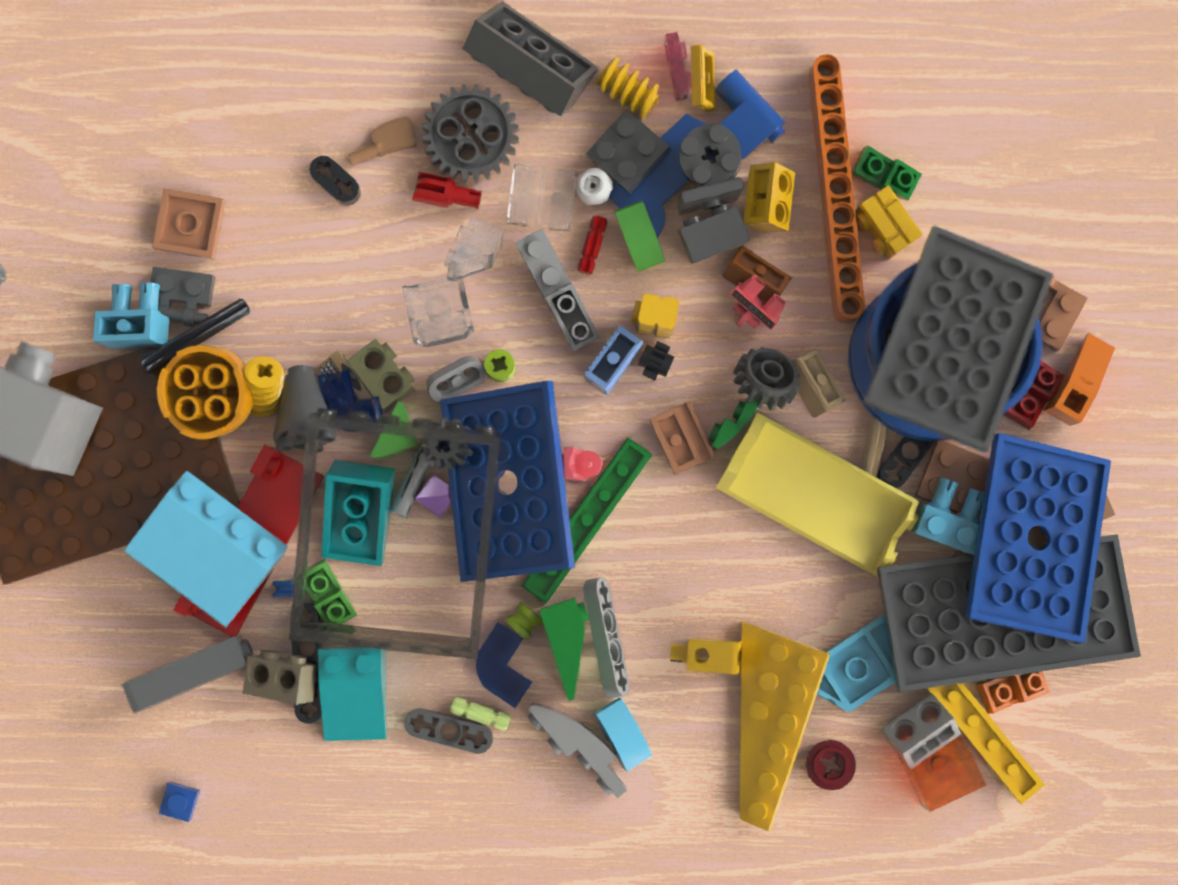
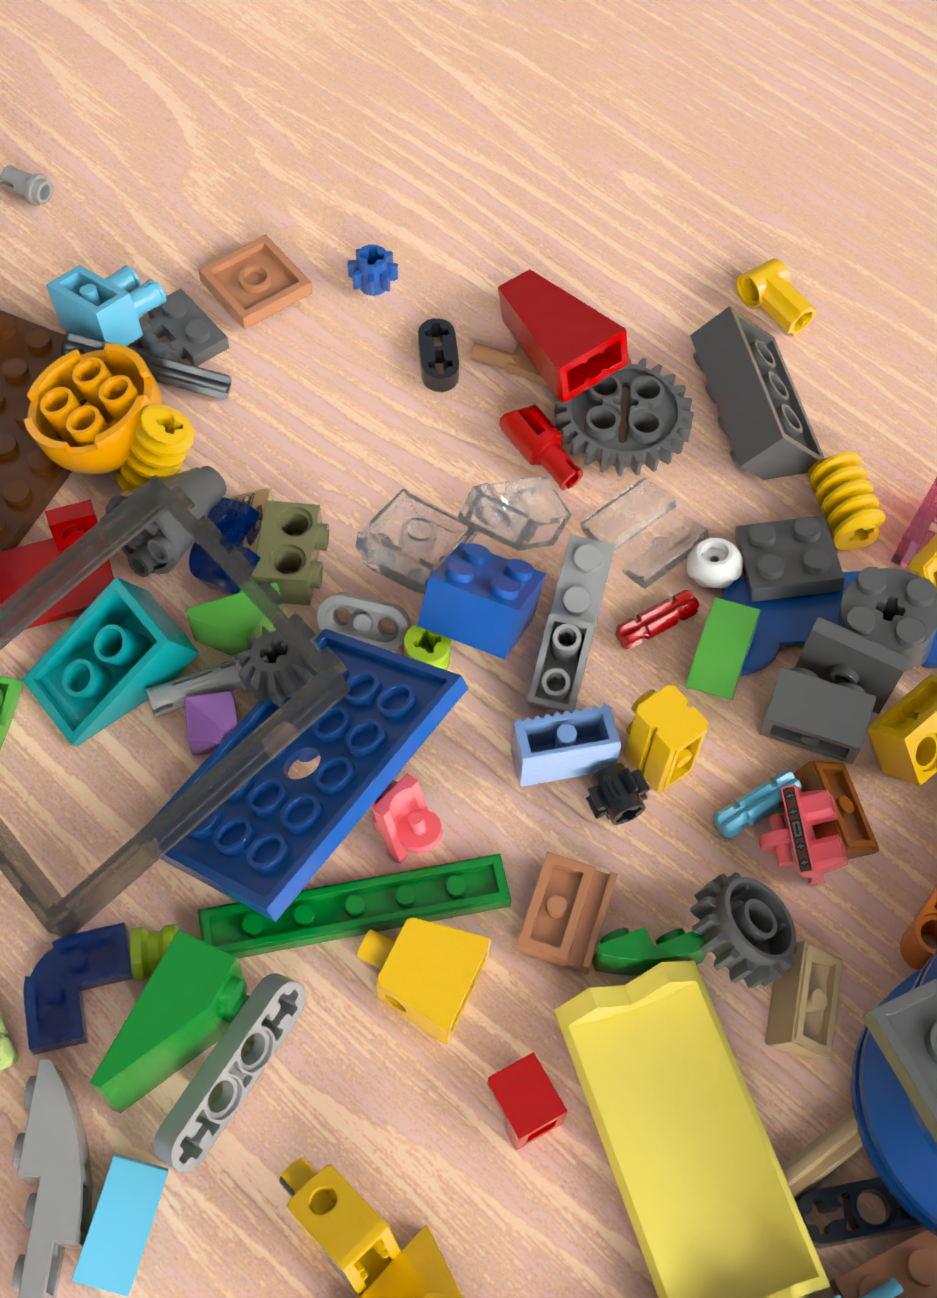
camera: 45 degrees right, 25 degrees down
(246, 148) = (372, 270): none -> blue gear
(398, 115) = (561, 334): none -> red slope
(506, 319) = (481, 599): none -> blue brick
(647, 521) = (427, 972): none -> yellow torso
(720, 305) = (753, 805): none -> medium azure axle
(739, 537) = (527, 1100): none -> red panel

